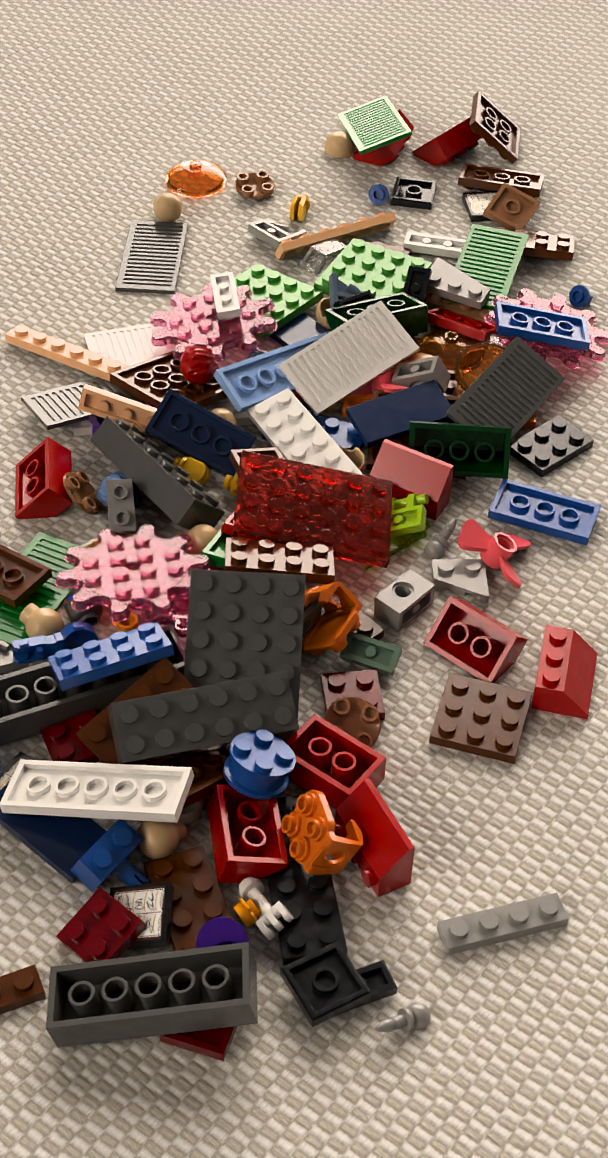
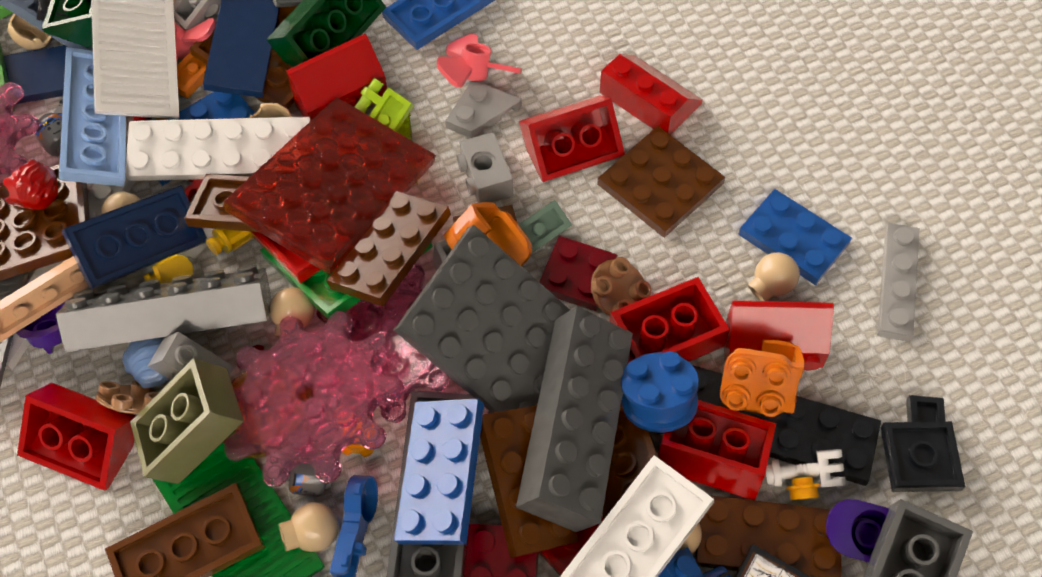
camera: 60 degrees left, 15 degrees up
(75, 518) = (186, 421): none -> olive brick
(414, 1017) = (970, 400): light grey bar -> none
(435, 822) = (774, 276): none -> tan piece
(436, 548) = (428, 112): light grey bar -> none
(494, 831) = (795, 231): none -> blue plate

